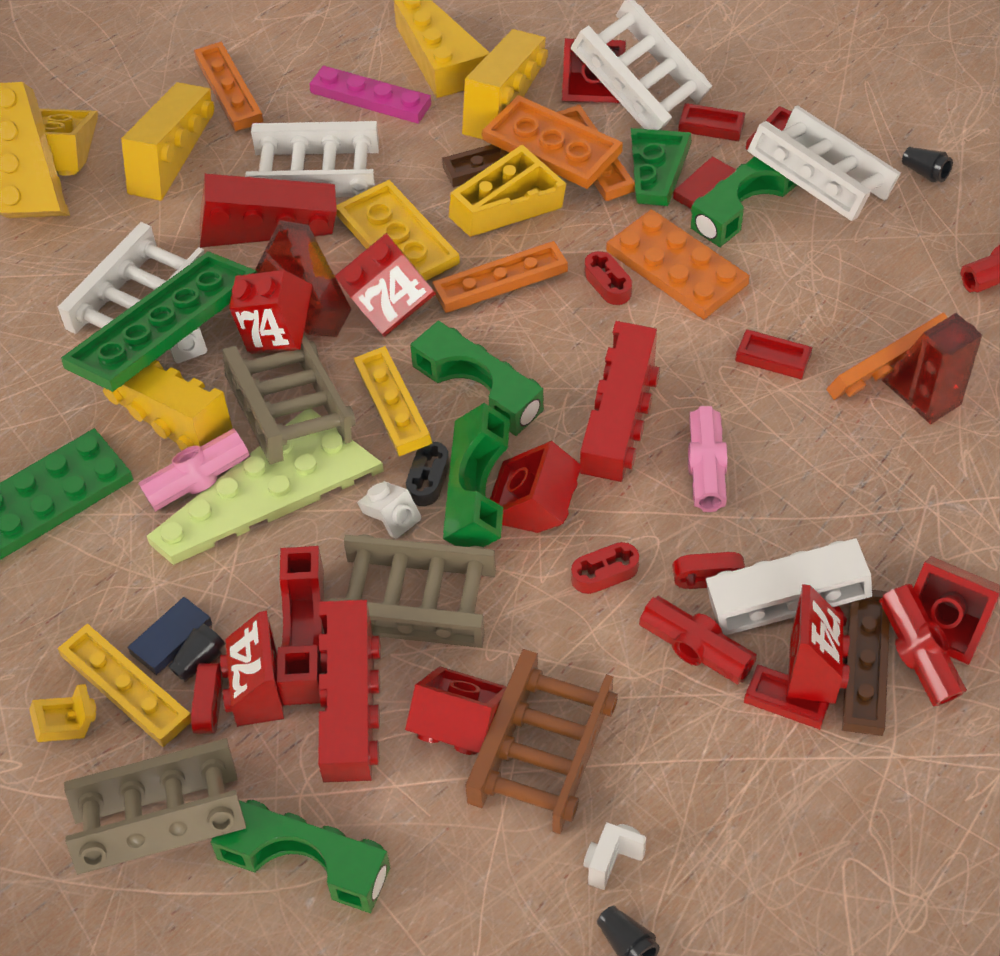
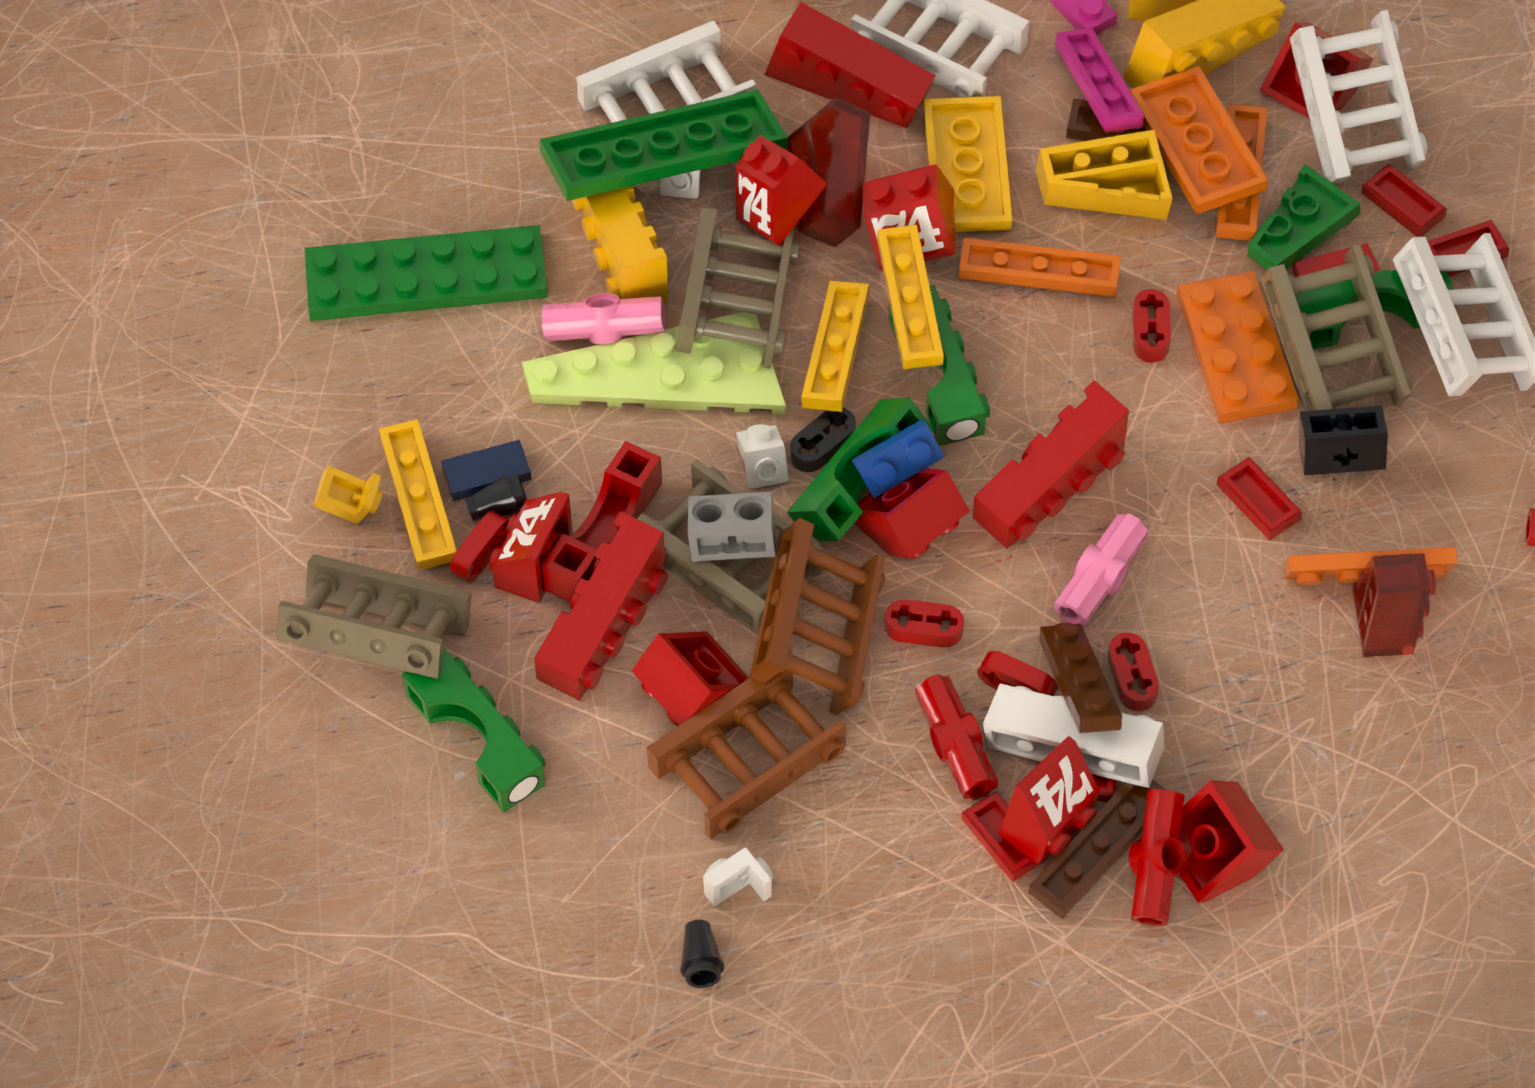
camera: 30 degrees right, 5 degrees up
(415, 568) = (731, 526): none -> light grey brick
(430, 335) = (910, 297): none -> yellow plate
(454, 137) = (1099, 80): none -> dark pink plate
(502, 453) = (898, 458): none -> blue plate
(510, 624) = (782, 620): none -> dark orange fence
(729, 236) = (1296, 327): none -> dark tan fence
(765, 541) = (1080, 678): none -> reddish brown plate
(785, 520) = (1141, 669): none -> red beam
(806, 283) = (1343, 440): none -> black brick

